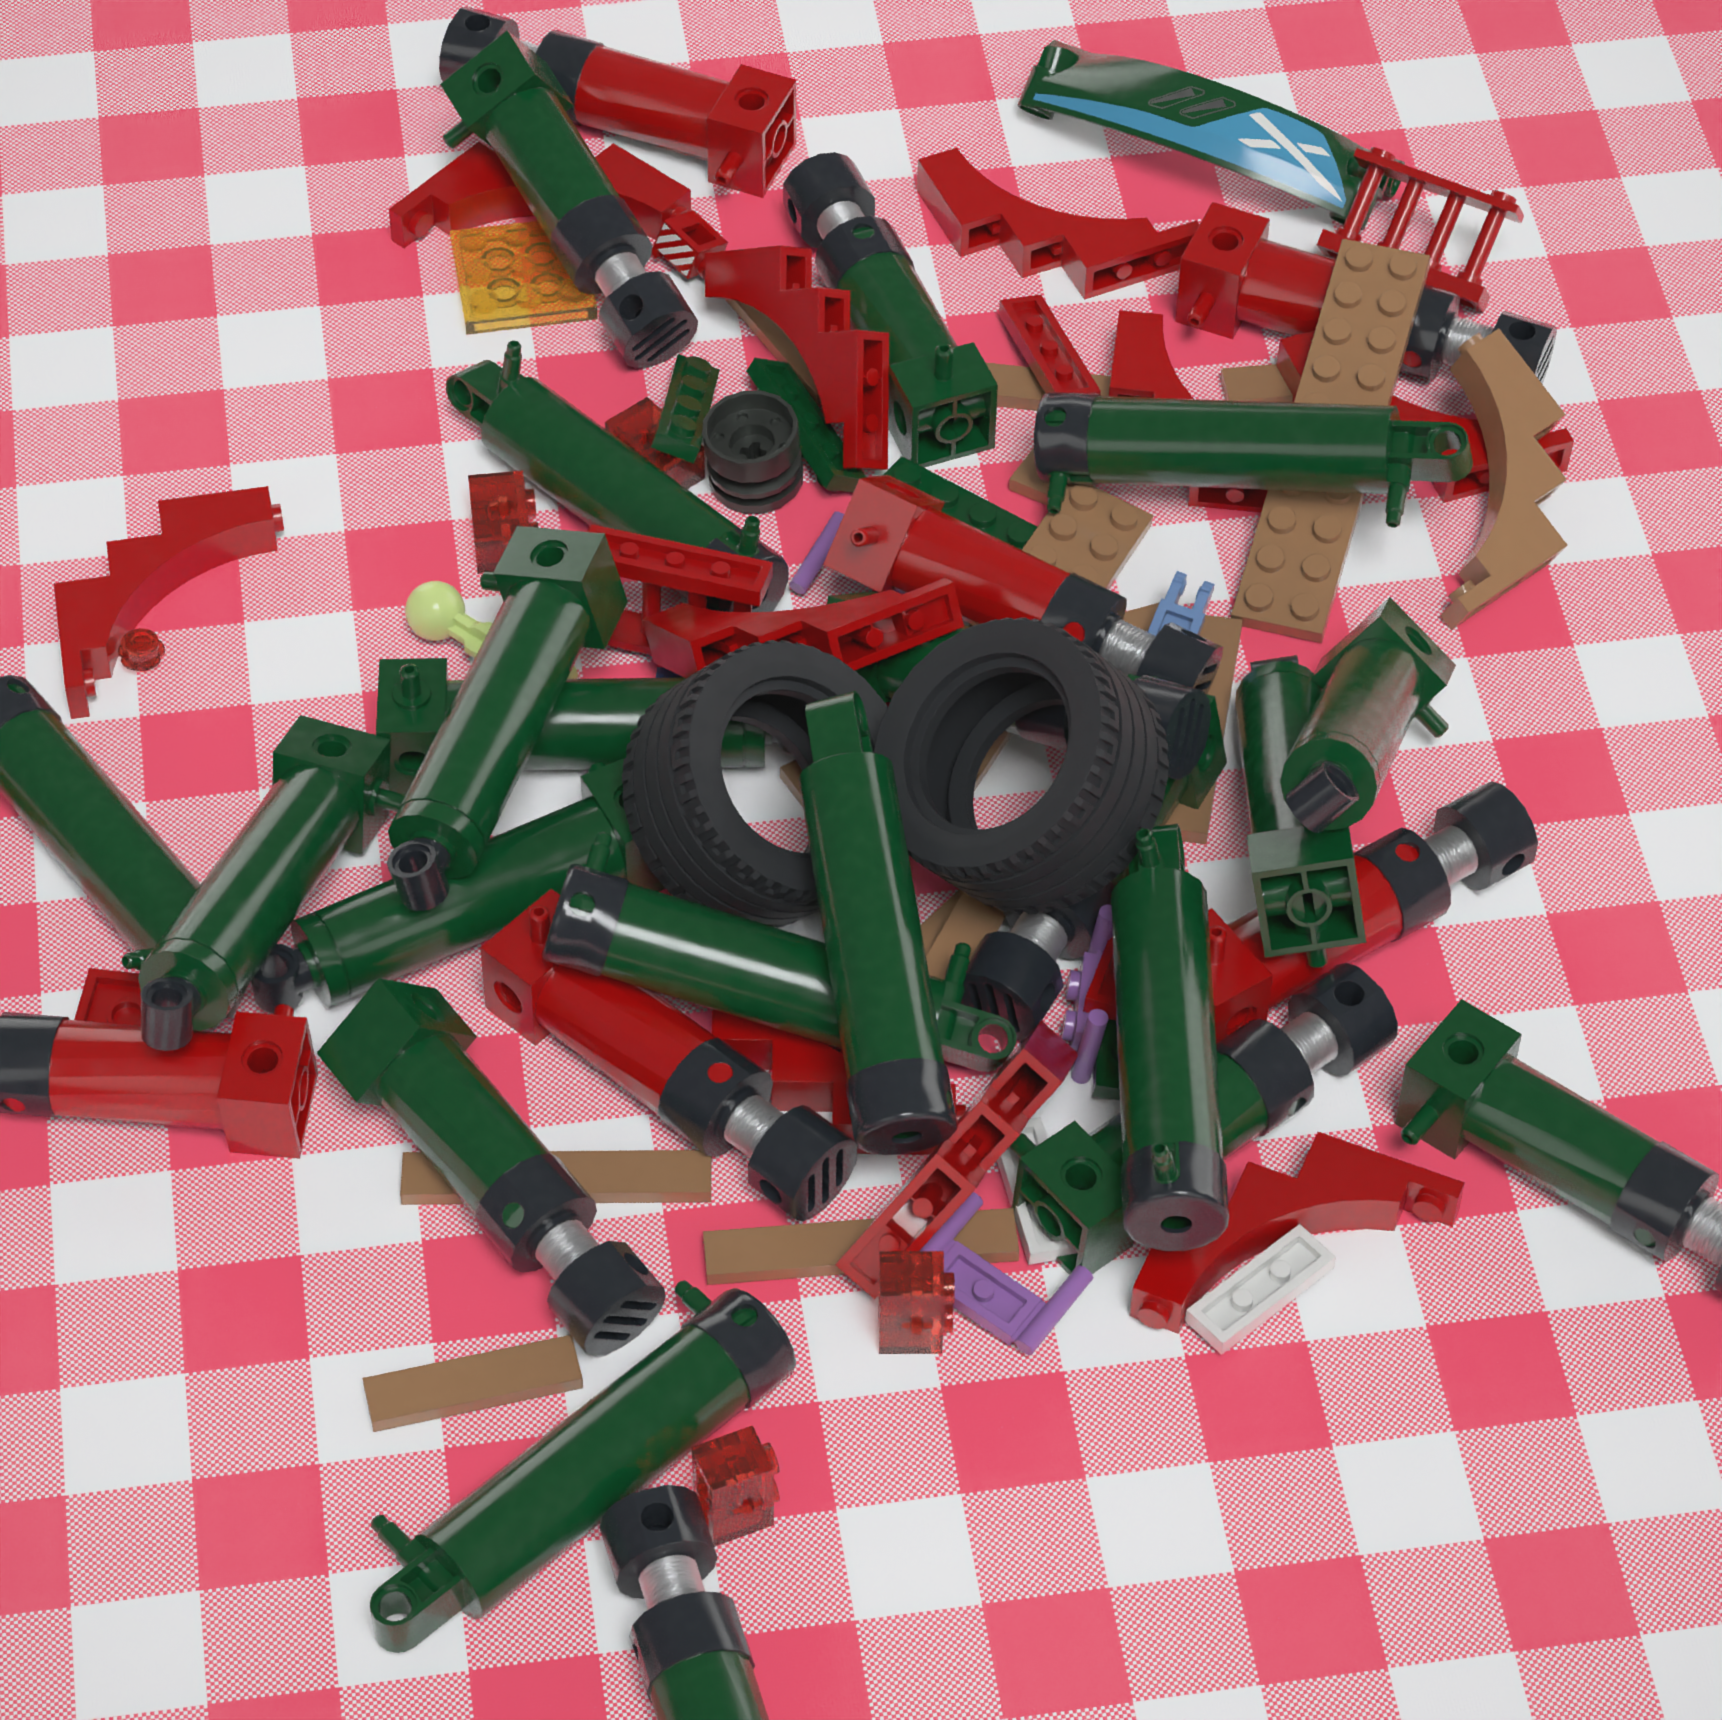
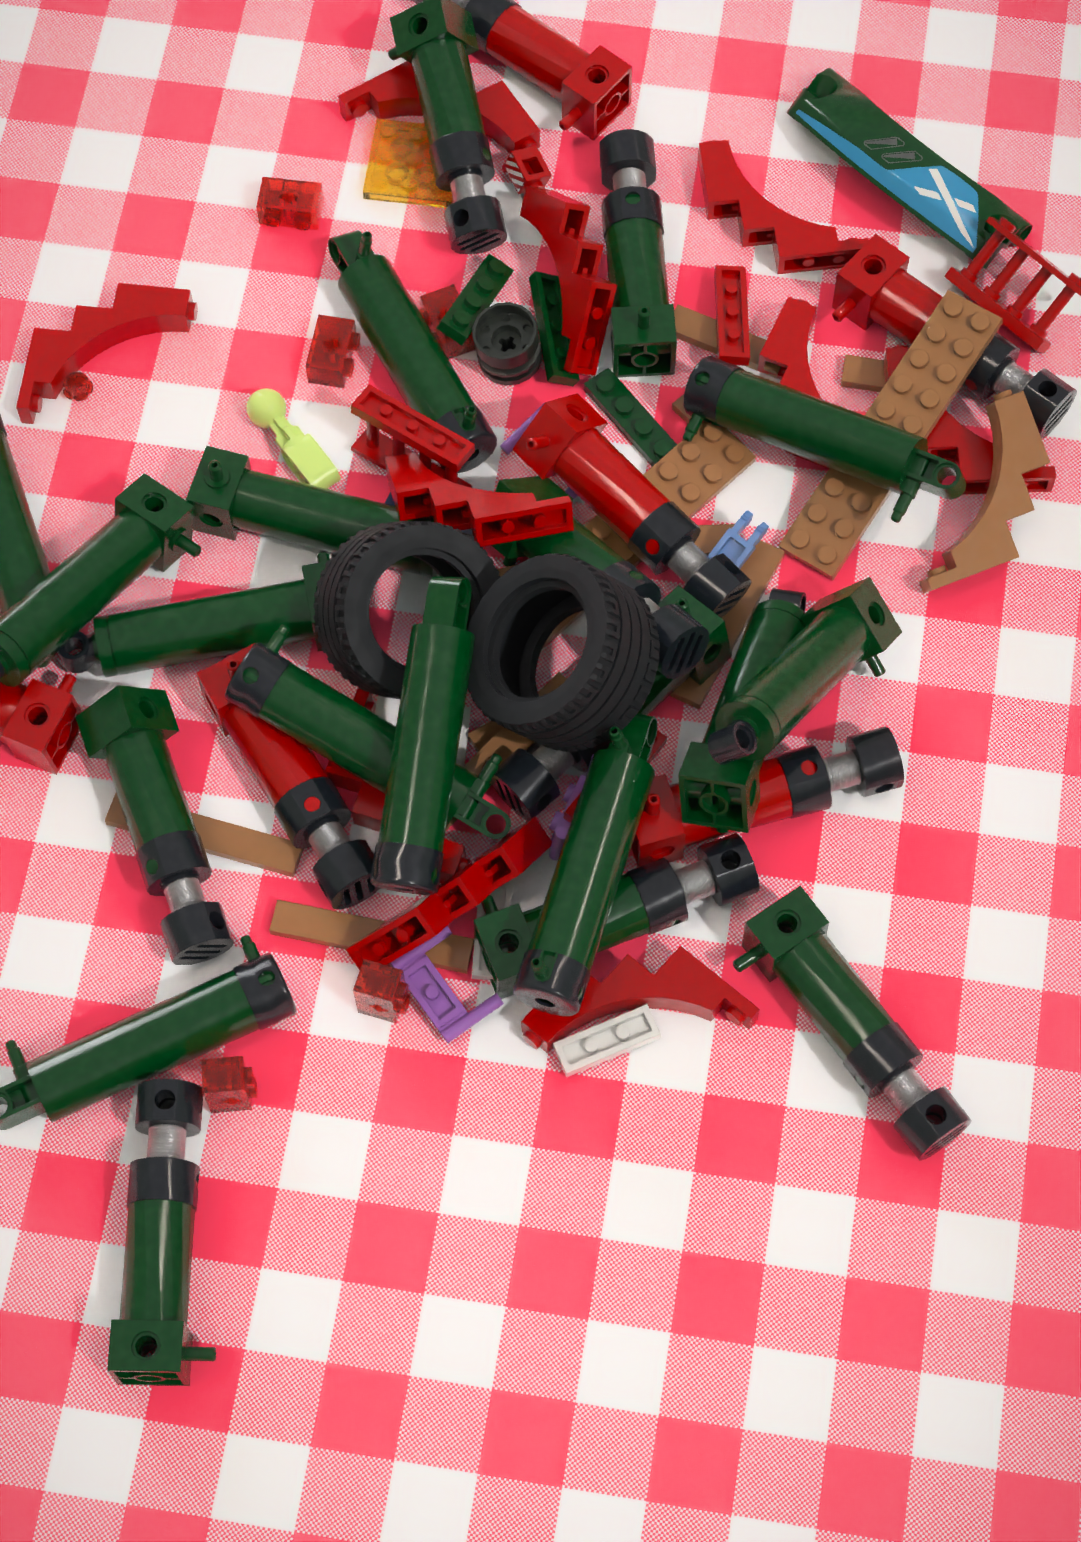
camera: 20 degrees right, 15 degrees up
(367, 356) = (290, 203): none -> clear red brick
(472, 1383) = (103, 961): medium nougat tile -> none
(556, 599) = (323, 438): dark green piece -> none

